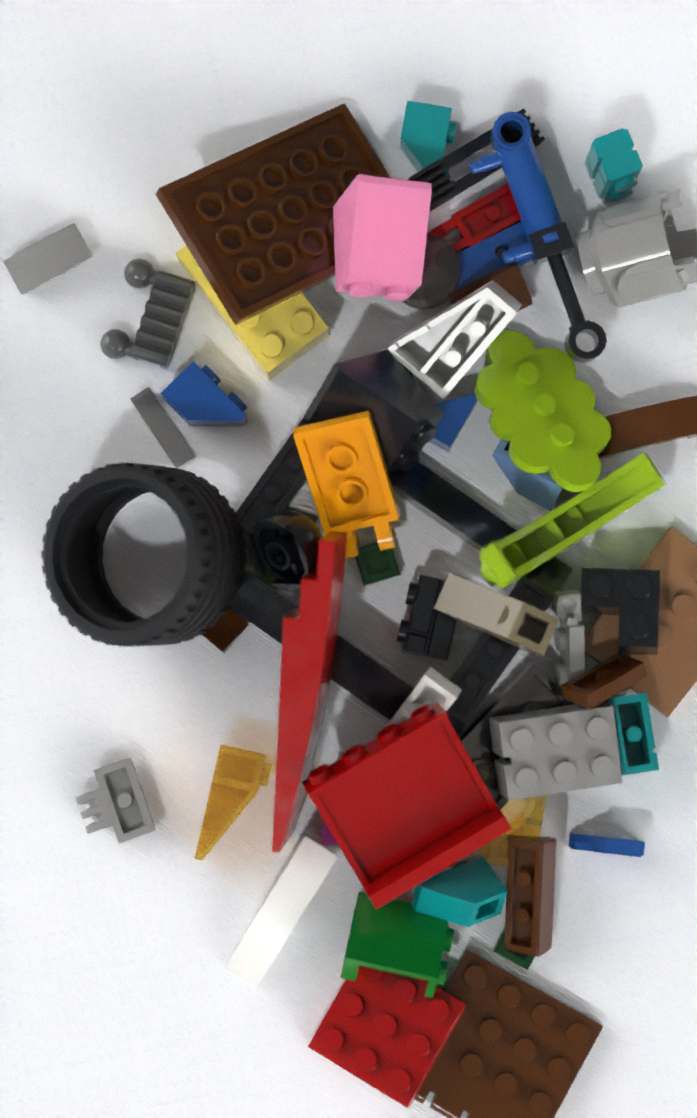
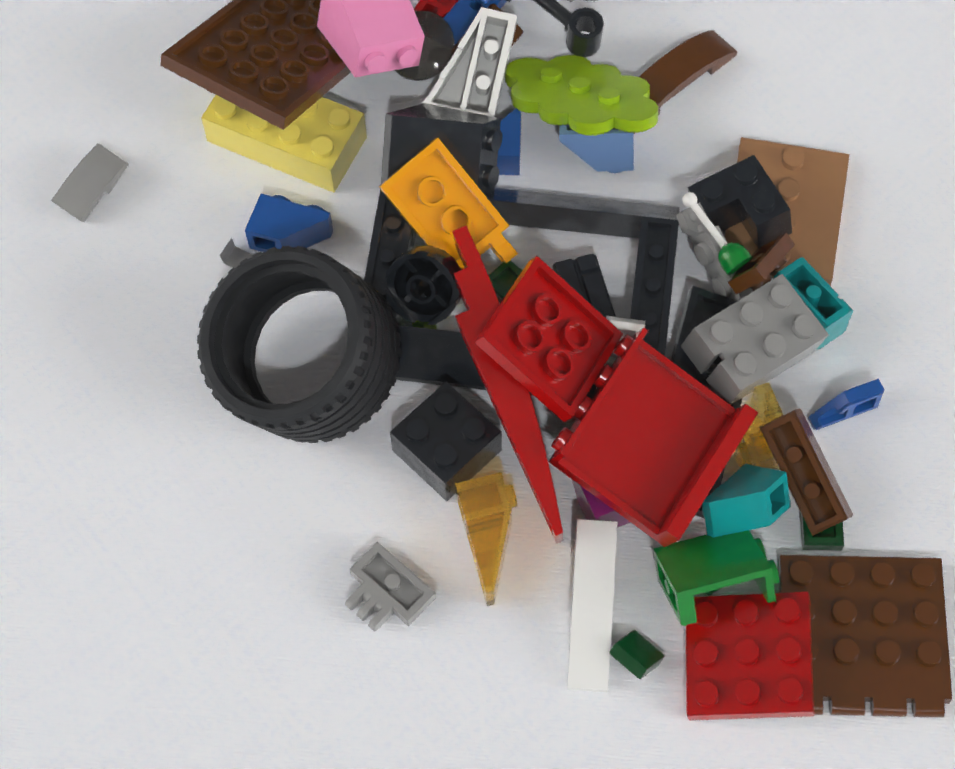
camera: 25 degrees left, 20 degrees down
(161, 319) = (214, 187): dark grey gear -> none
(226, 630) = (402, 400): reddish brown slope -> none
(235, 694) = (446, 440): none -> black brick
(295, 973) = (636, 654): none -> dark green tile
(356, 680) = (549, 338): none -> red plate
(497, 614) = (646, 244): dark tan slope -> none
(569, 523) = (663, 154): lime arch -> none
(578, 663) = (731, 255): none -> hinge

